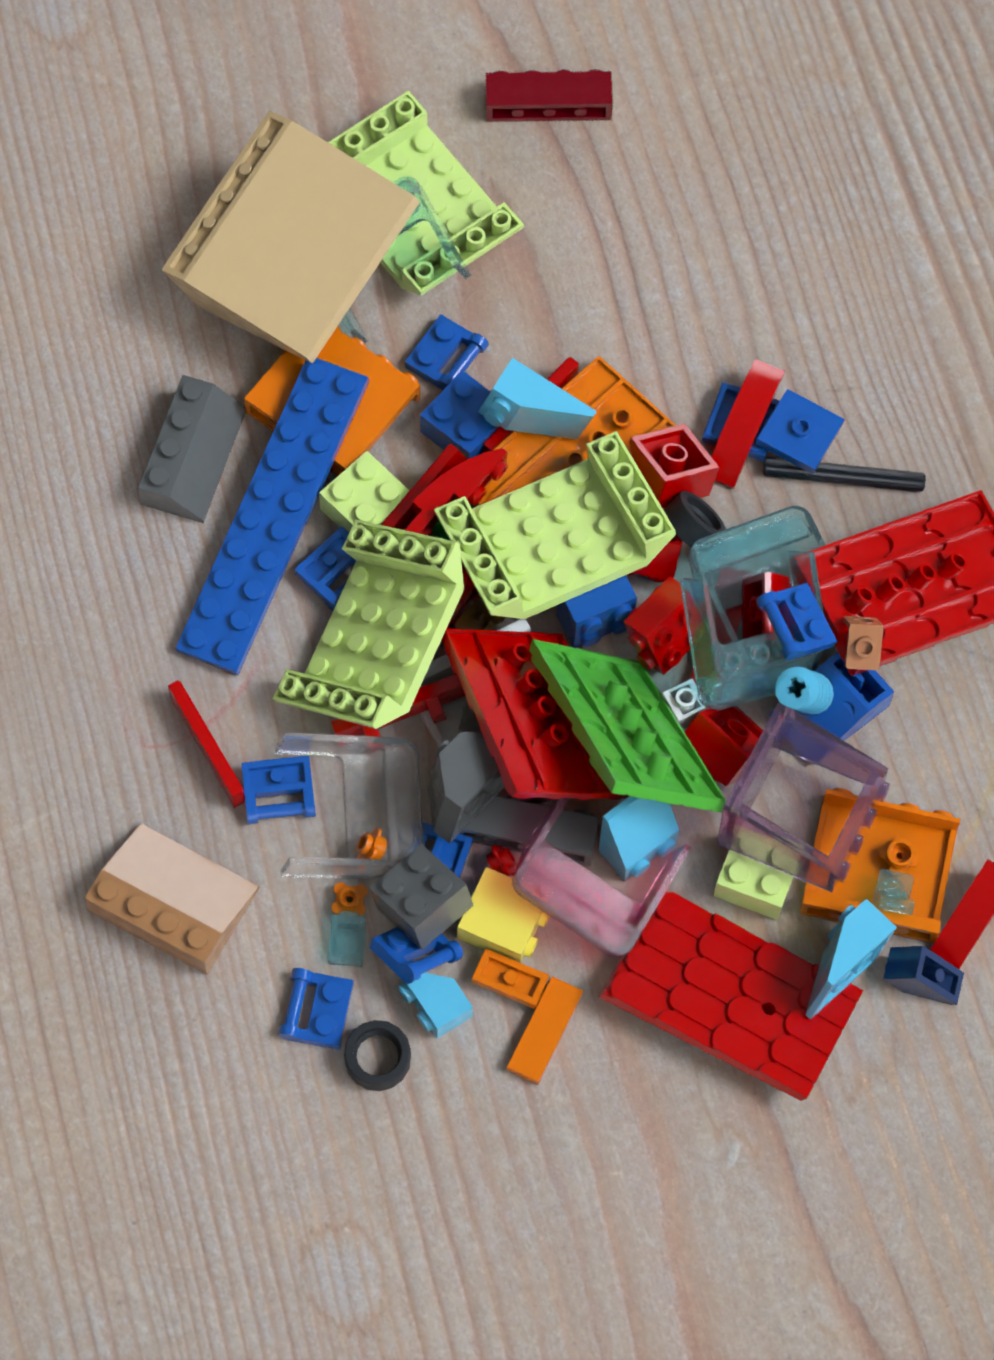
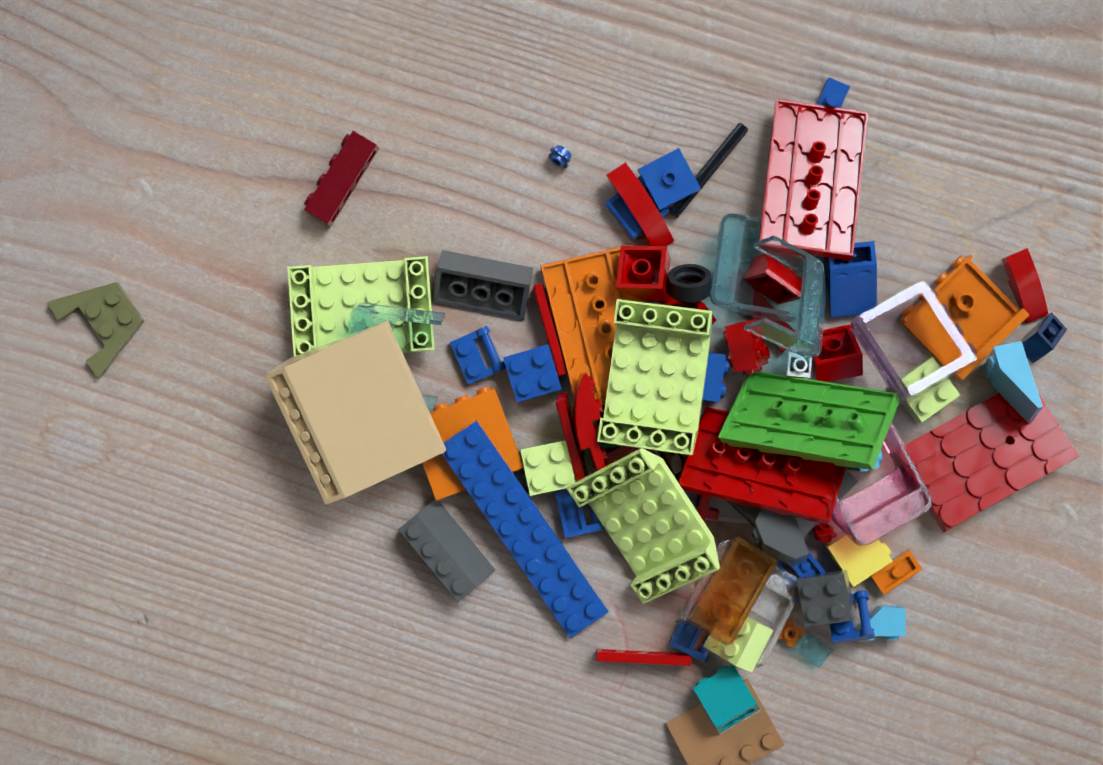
camera: 50 degrees left, 20 degrees up
(217, 863) = (726, 698): none -> teal piece
(302, 826) = (746, 647): none -> yellowish green brick
(327, 1013) = (848, 686): blue plate -> none
(356, 767) = (732, 591): none -> clear orange brick
(368, 1030) = (899, 693): black tyre -> none
(371, 845) = (771, 604): orange plate -> none
(532, 306) = (482, 285): none -> dark grey slope
(534, 405) = (552, 343): medium azure slope -> none
(545, 1030) = (936, 571): orange tile -> none
(741, 305) = (560, 156): none -> blue plate
(803, 618) = (809, 268): blue plate -> none
(804, 690) = (846, 296): medium azure piece -> none
(863, 642) = (841, 240): nougat bracket -> none
(894, 892) = (989, 324): clear light blue bracket -> none

